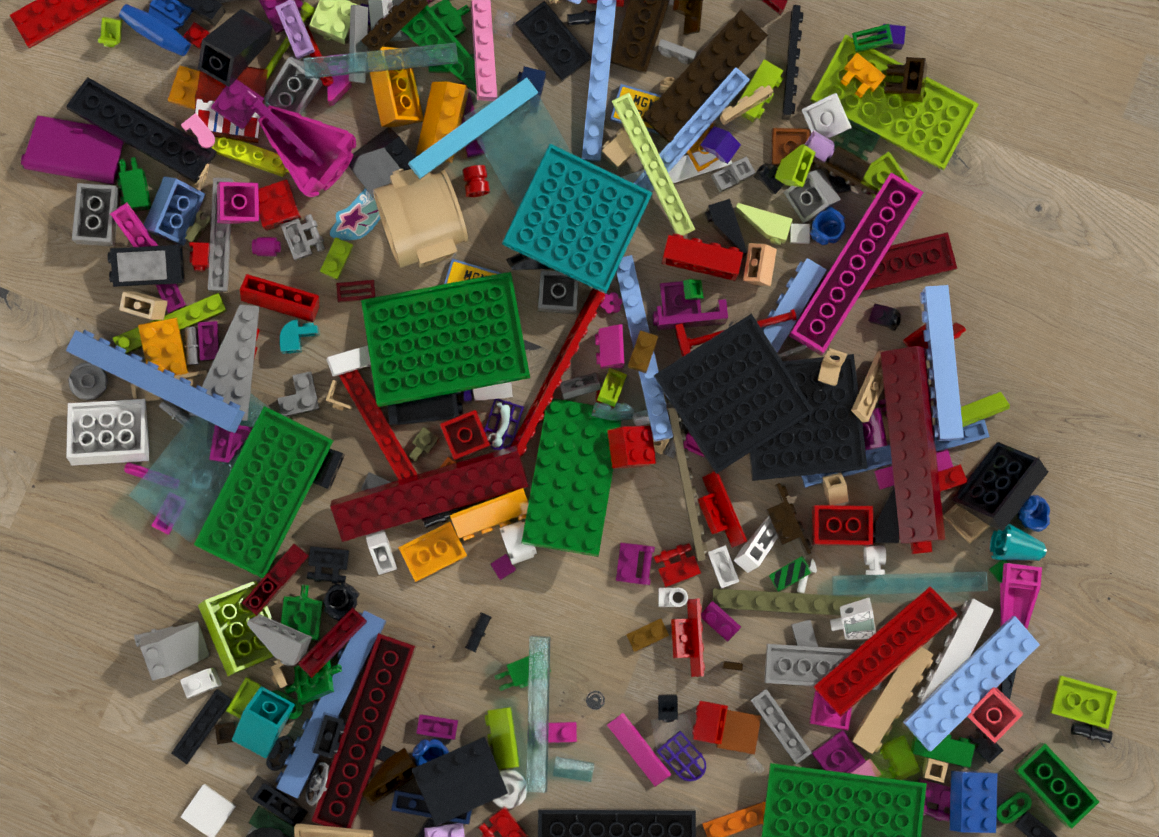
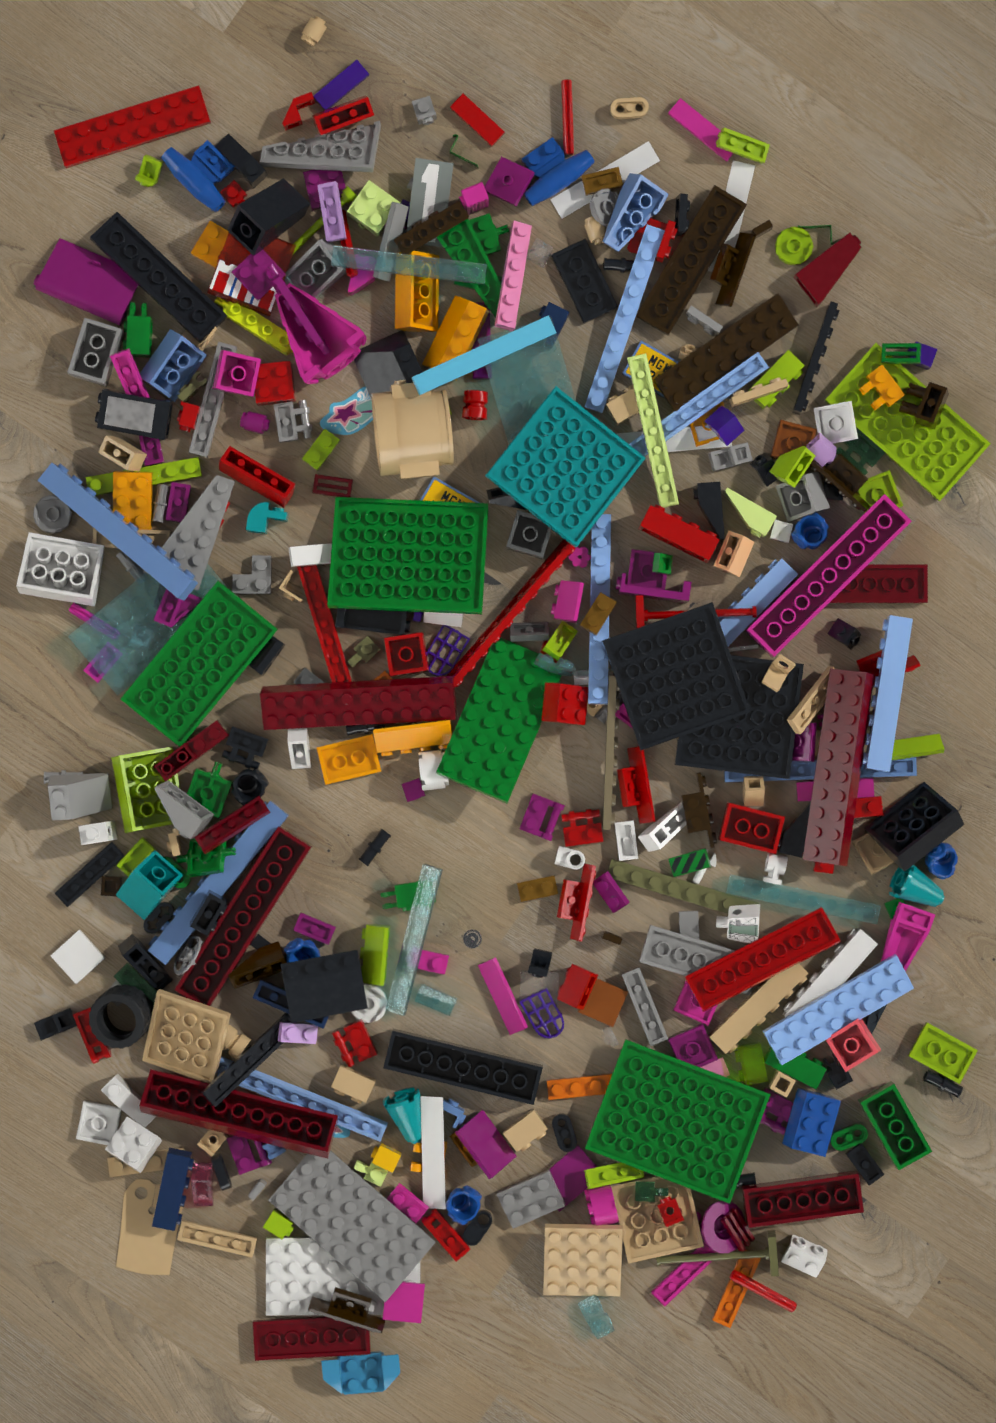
camera: 20 degrees right, 5 degrees up
(205, 136) = (219, 299): bright pink leg -> none
(494, 438) = (435, 664): light aqua piece -> none

